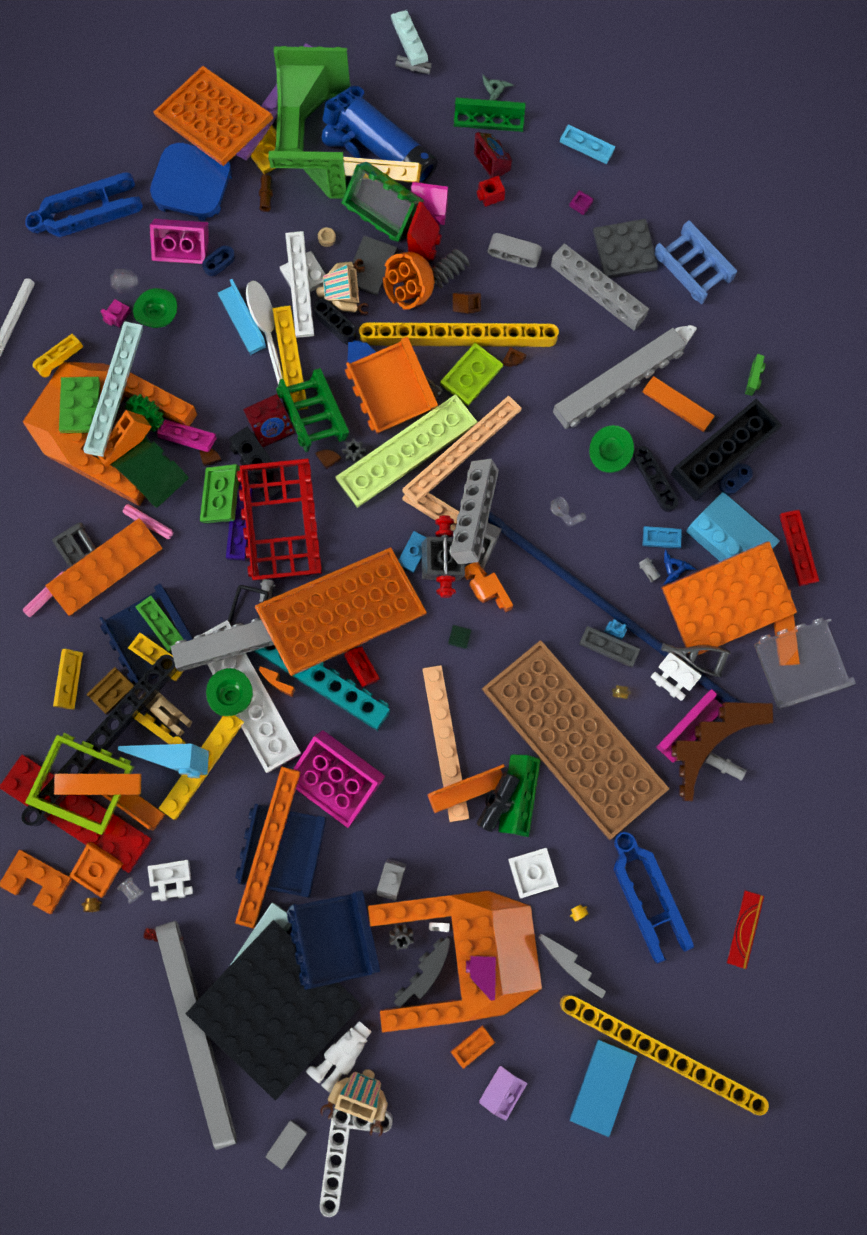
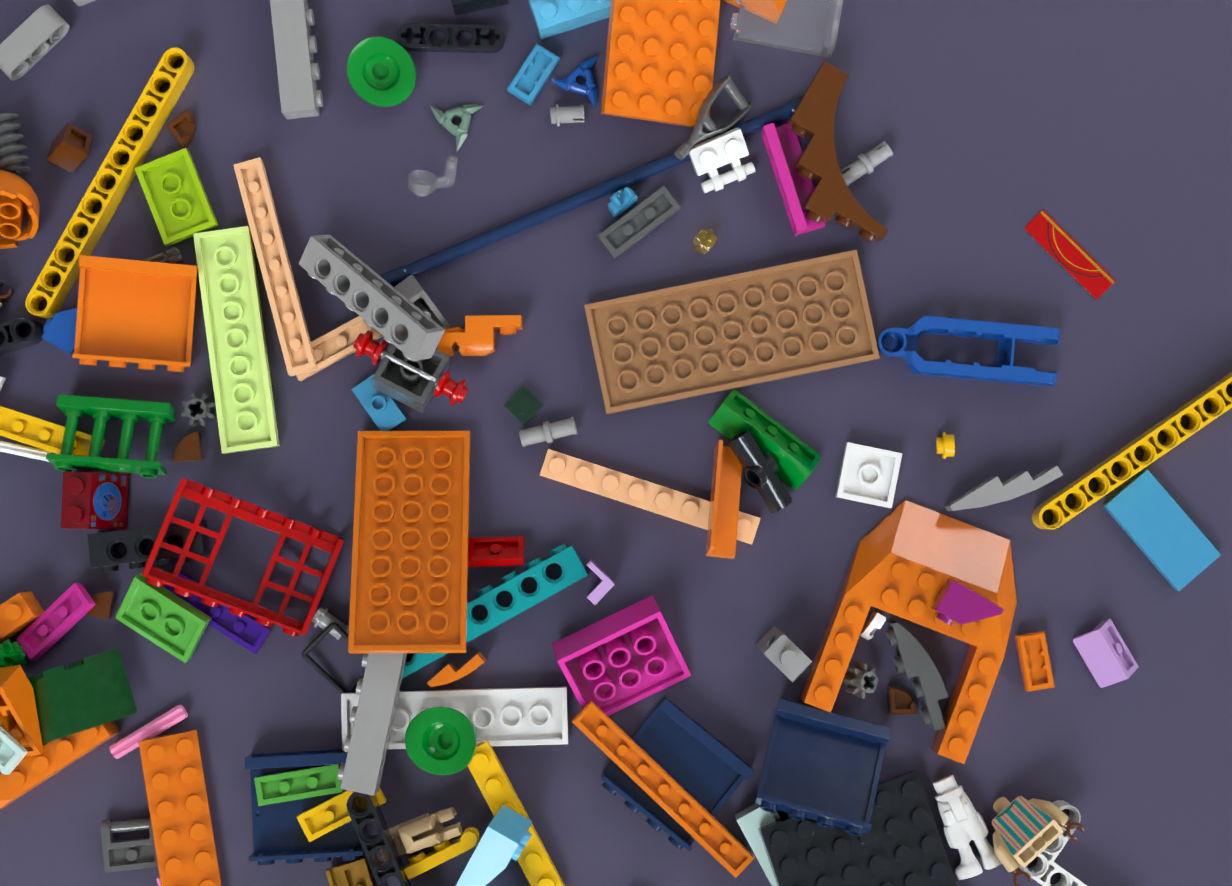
camera: 60 degrees left, 10 degrees up
(375, 741) = (603, 587): none -> lavender panel
(400, 972) = (900, 702): none -> reddish brown tile
(451, 659) = (548, 432): none -> light grey pin
(603, 513) = (461, 130): none -> sand green piece

